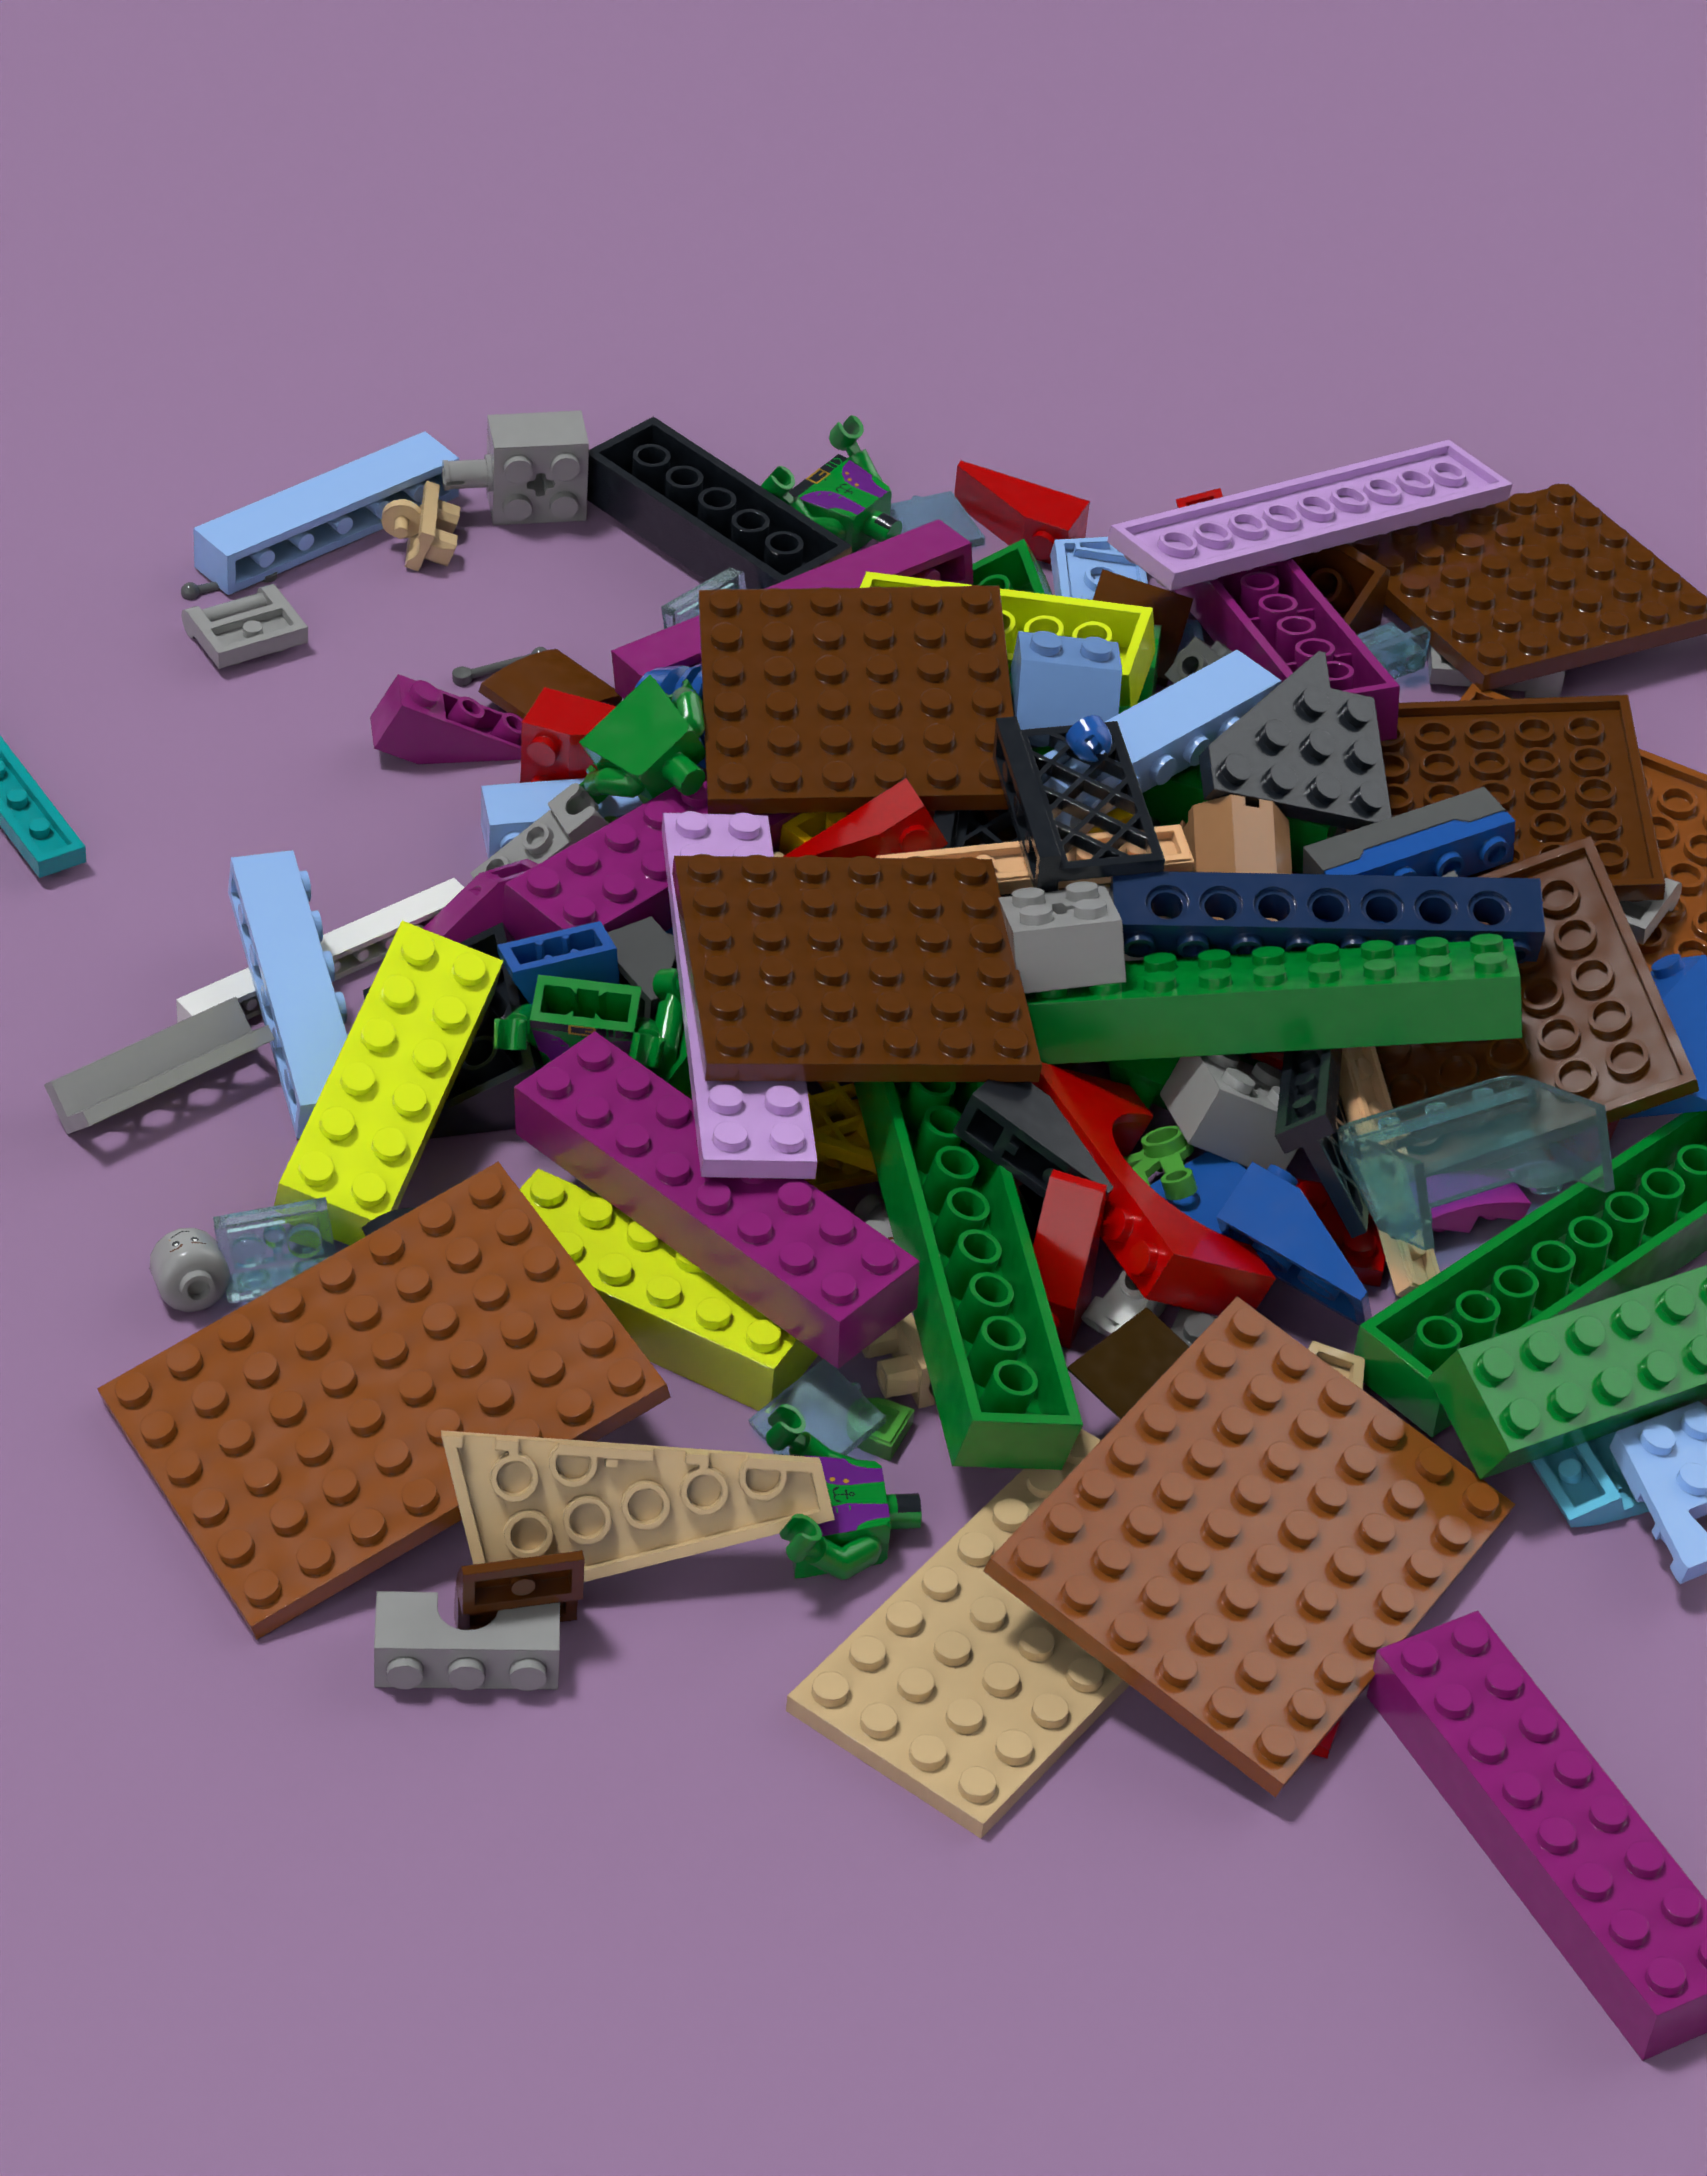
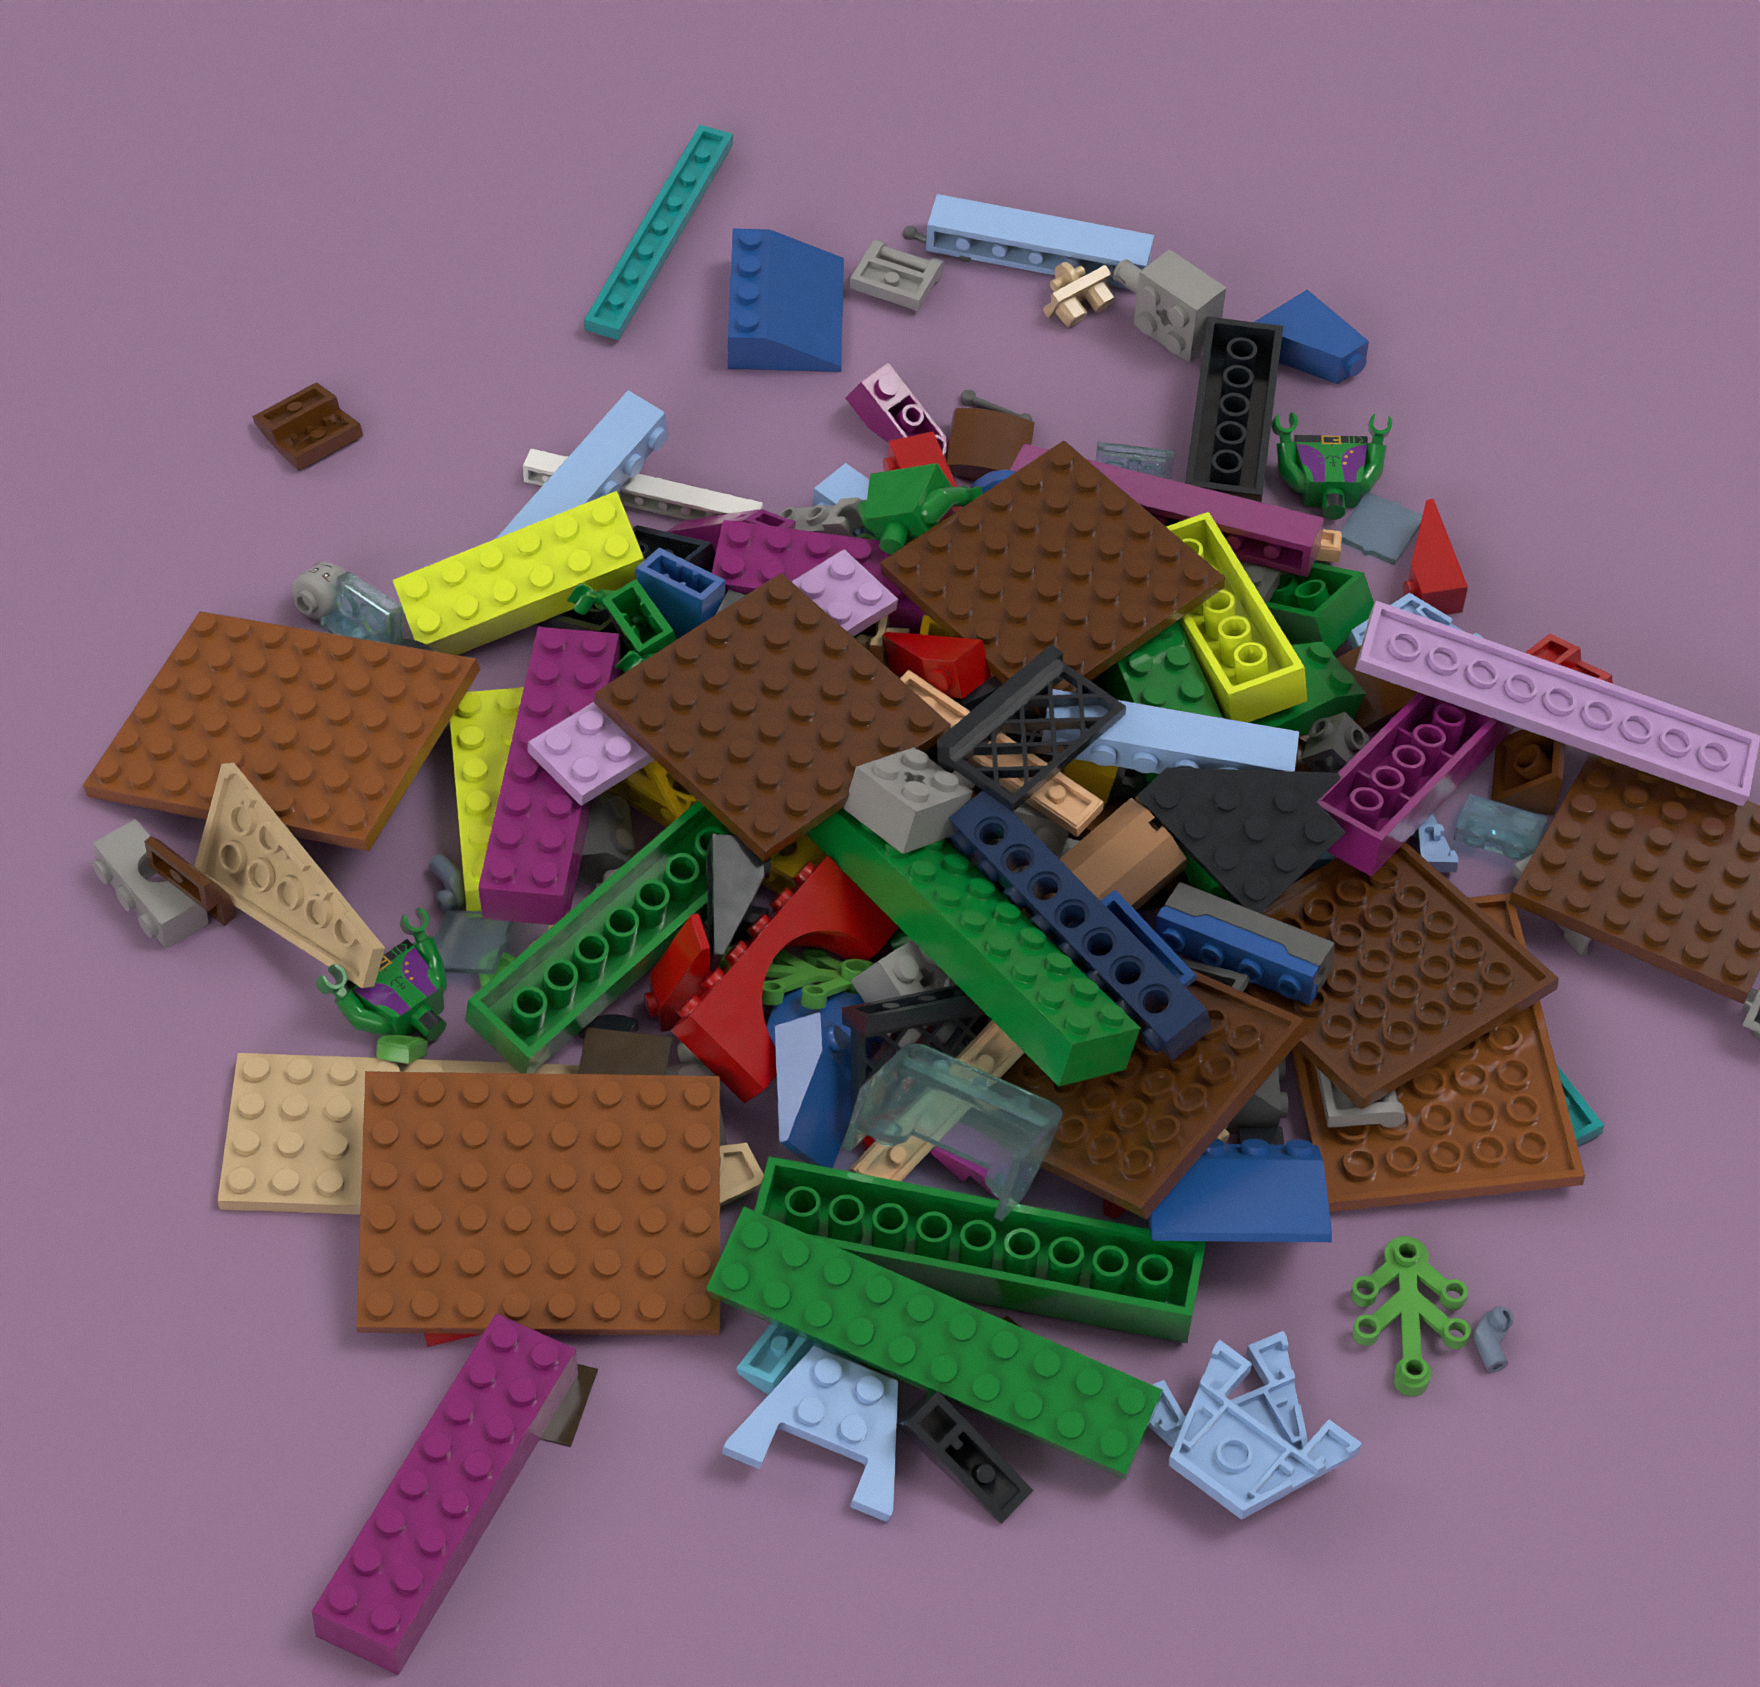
camera: 55 degrees right, 10 degrees up
(154, 1065) = (465, 472): light grey fence -> none
(183, 724) = (784, 304): none -> blue slope
(689, 410) = (1317, 339): none -> blue slope
(719, 1390) = (452, 878): none -> sand blue arm
(915, 1553) = (401, 1048): none -> bright green tile
(1063, 679) = (1168, 667): medium blue slope -> none
(1089, 738) = (1078, 700): blue hinge -> none

